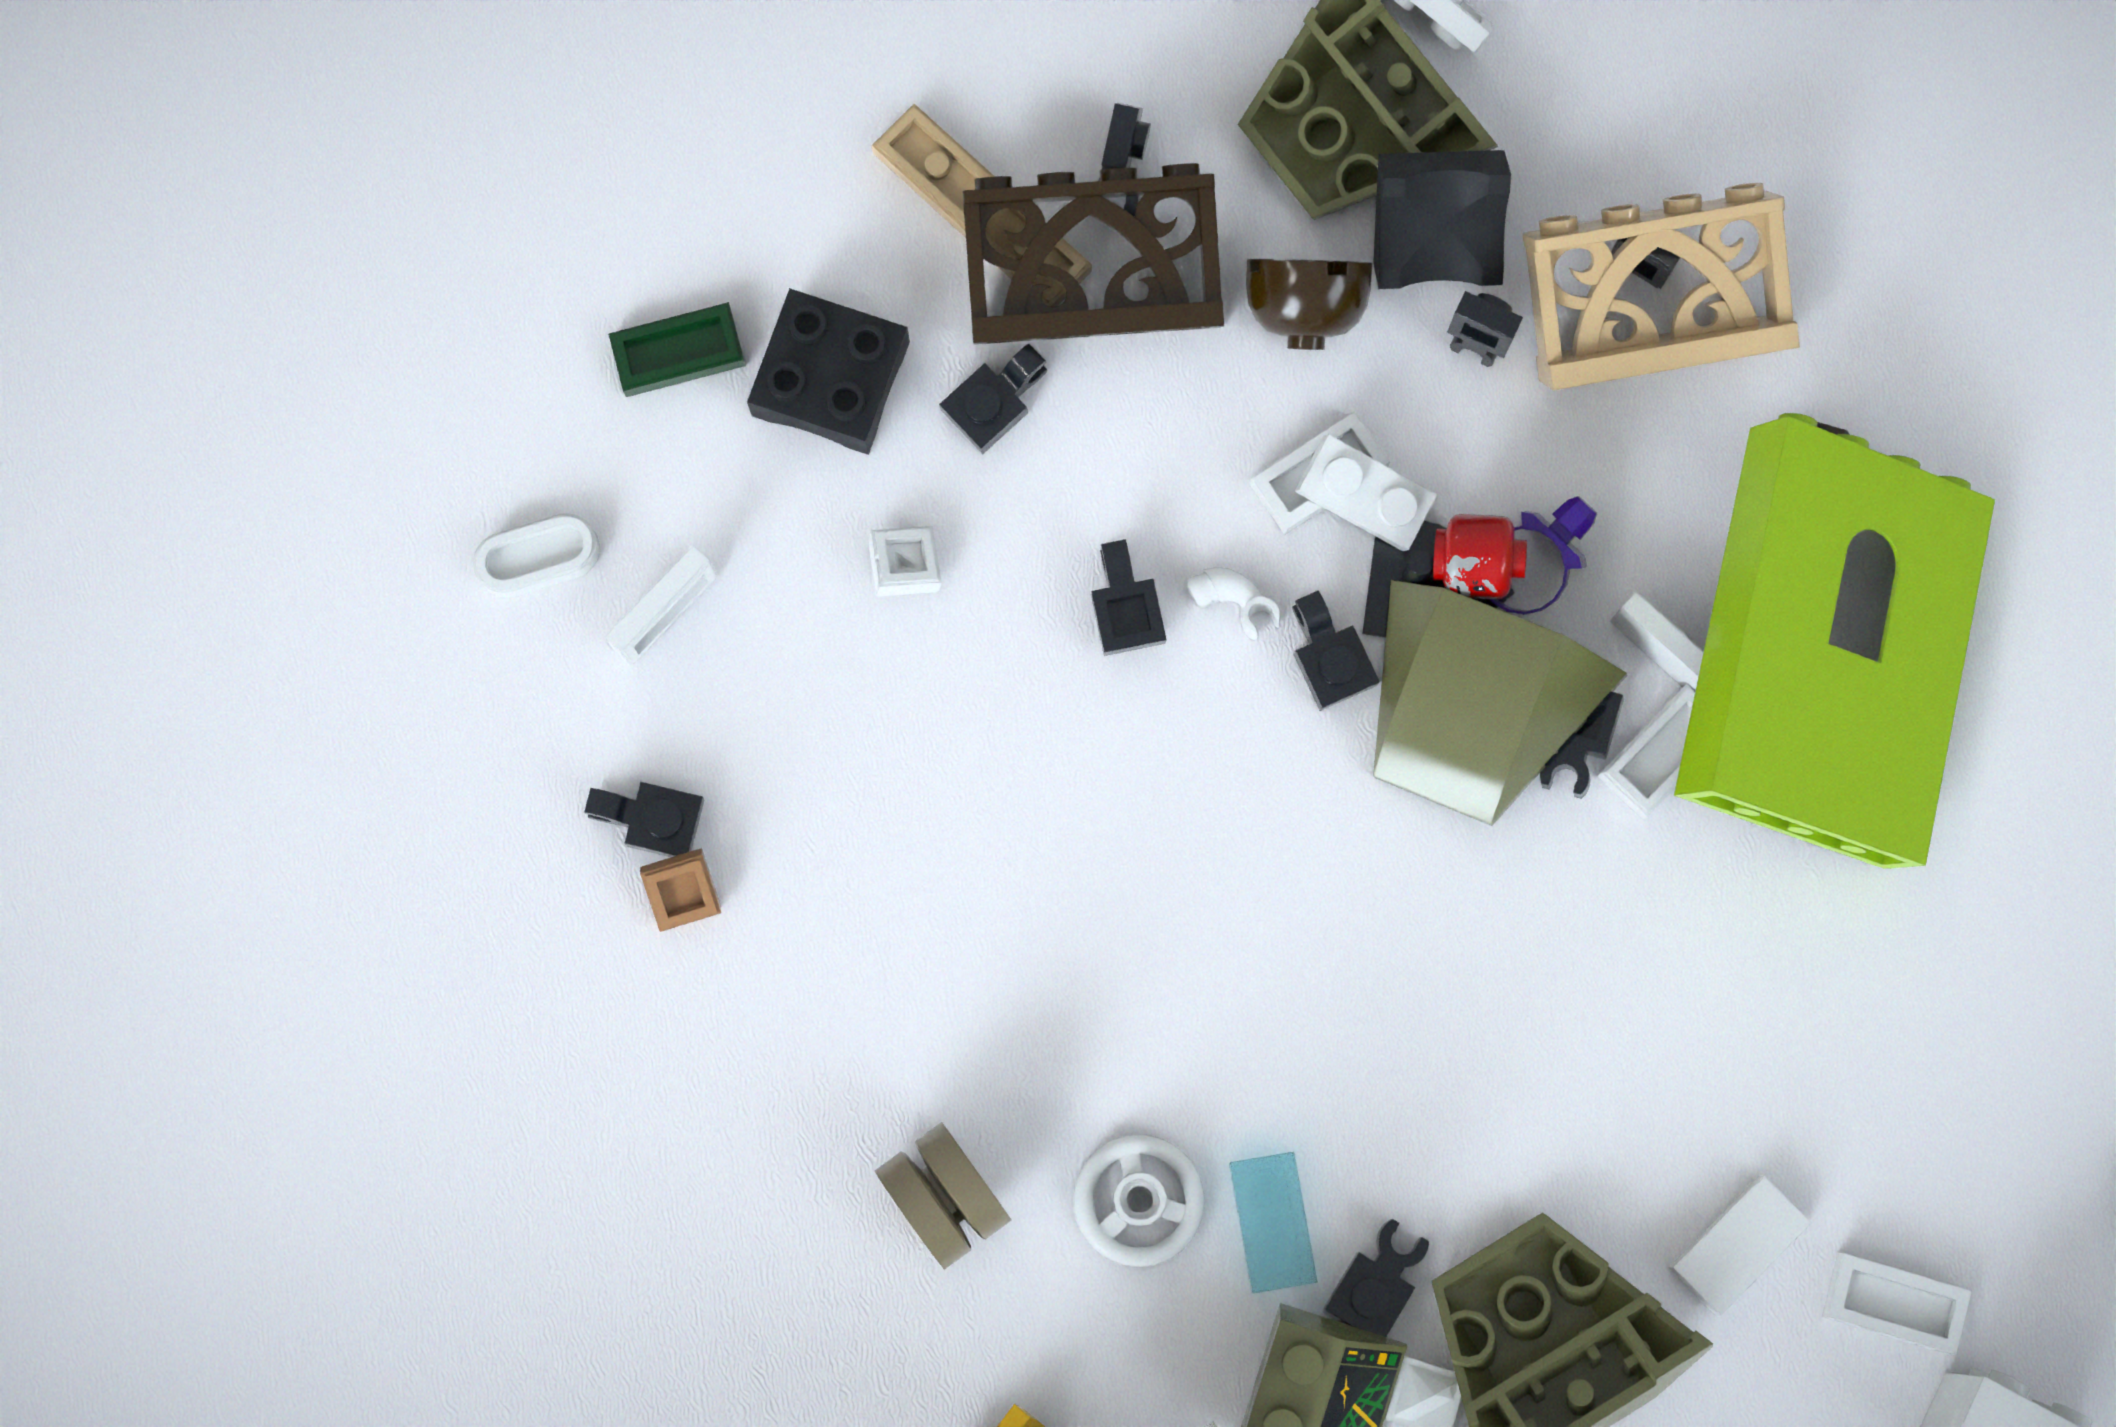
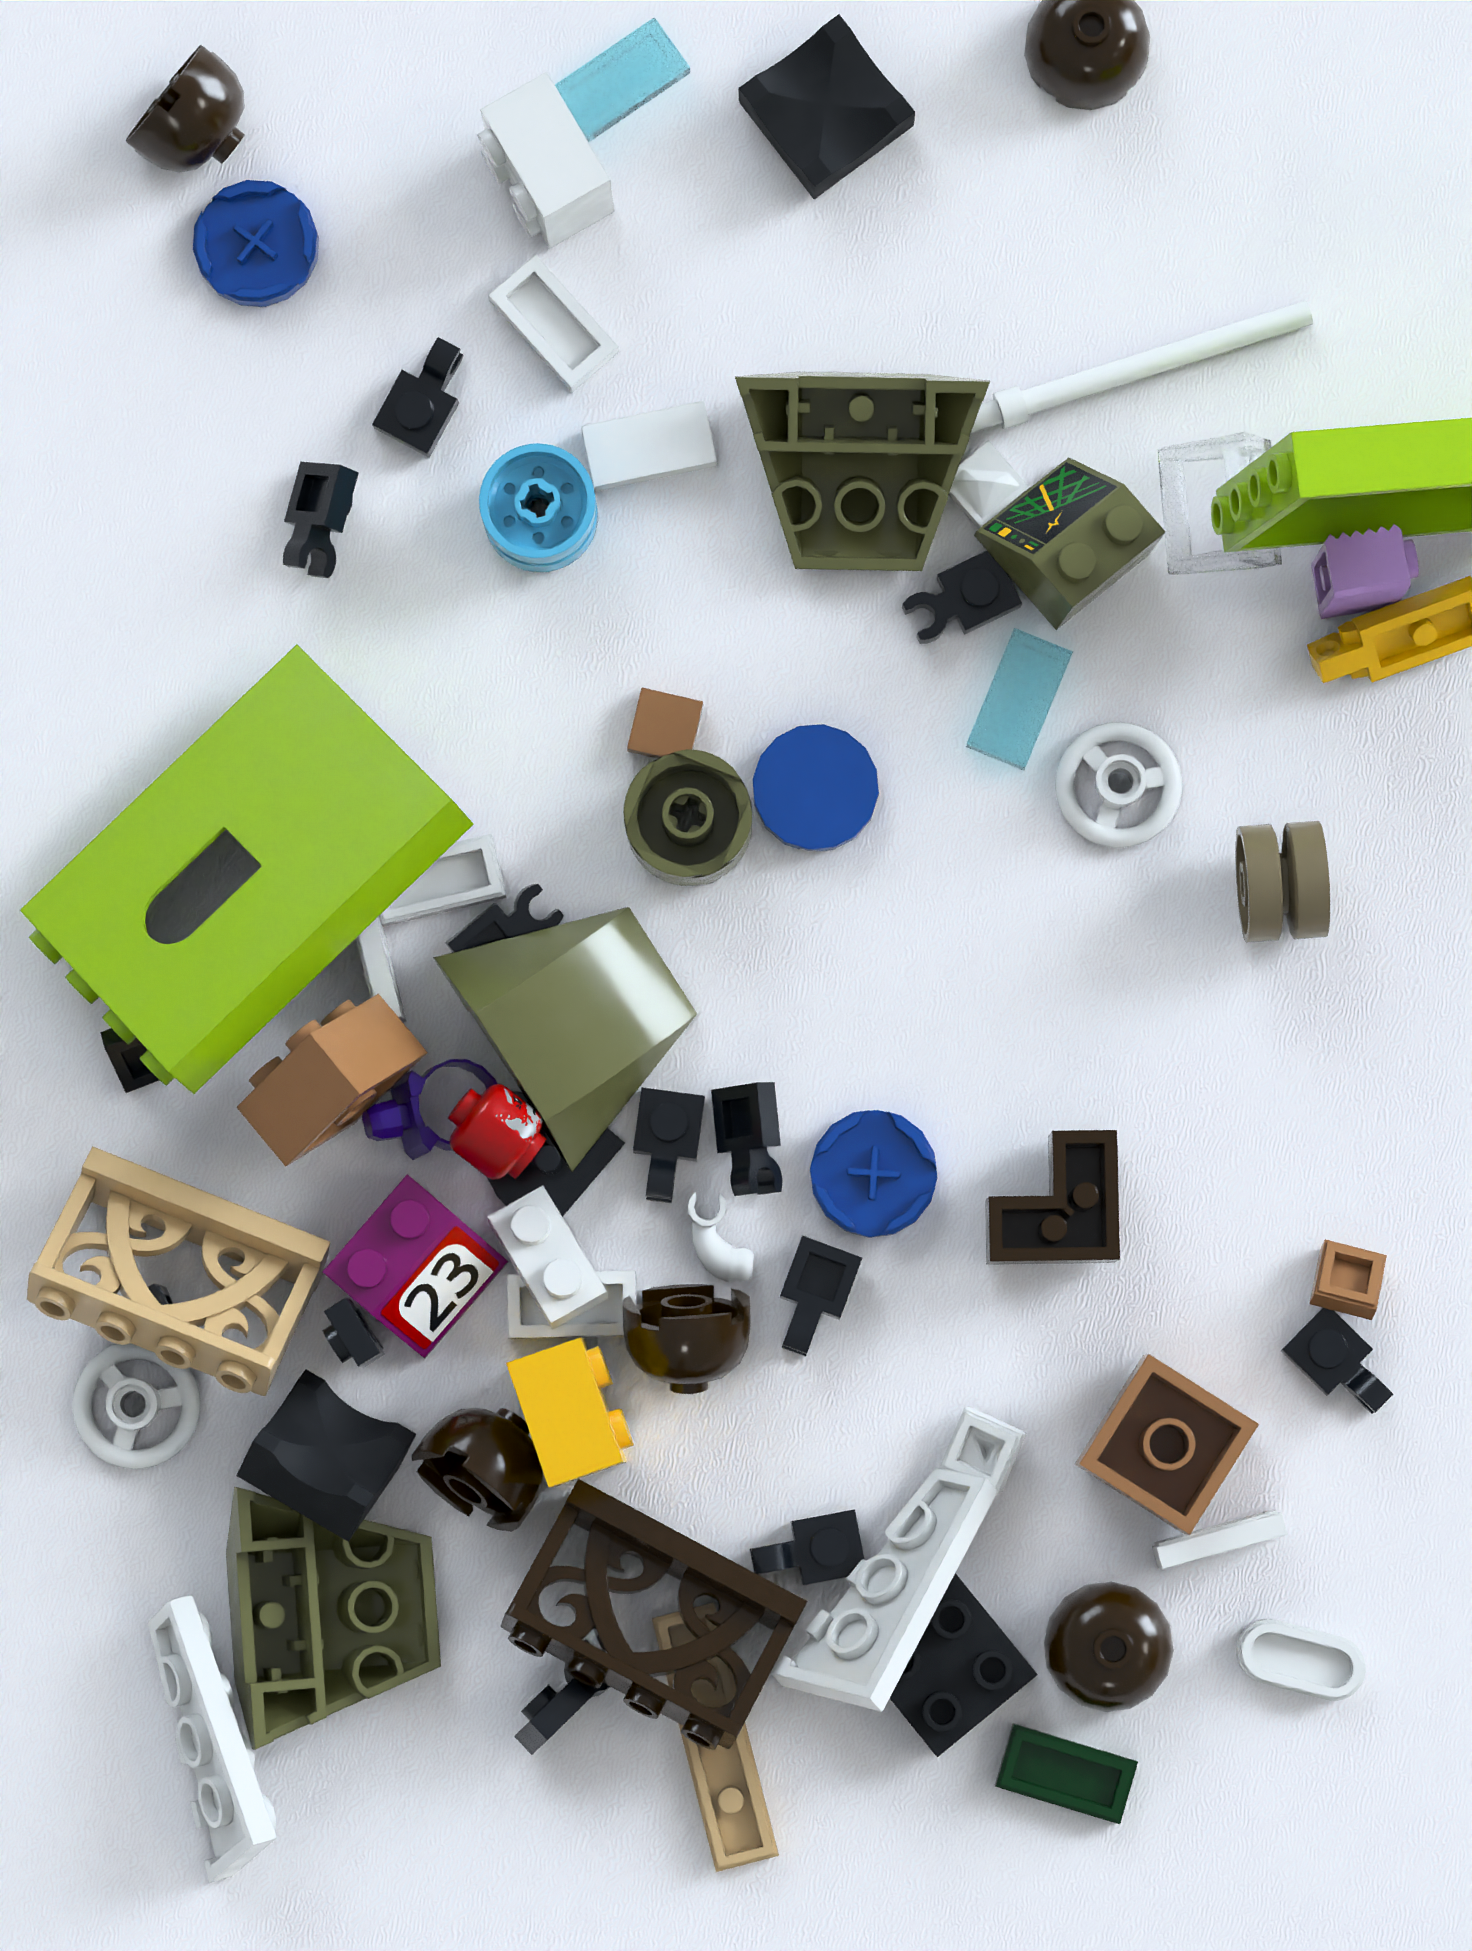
camera: 145 degrees left, 5 degrees up
(702, 468) = (1108, 1646): none -> dark brown cylinder
(752, 651) = (1166, 1444): none -> medium nougat brick
(904, 363) = (877, 1624): none -> white wing
(946, 787) = (1076, 1218): none -> dark brown brick
(1139, 734) = (873, 1173): none -> blue tile
(1212, 500) = (687, 1334): none -> dark brown cylinder
(1266, 371) = (569, 1412): none -> yellow brick
(1266, 700) = (746, 1127): none -> black plate
(1399, 1031) = (815, 787): none -> blue tile
(1470, 420) = (415, 1266): none -> magenta slope
(1511, 898) = (671, 786): none -> olive brick
(1561, 1003) = (664, 724): none -> medium nougat tile
(1616, 158) = (121, 1451): none -> white piece
(1648, 514) = (329, 1077): none -> medium nougat brick
(1833, 1122) = (506, 500): none -> medium azure wheel
(1962, 1150) = (418, 407): none -> black plate
(1984, 1002) = (317, 507): none -> black plate

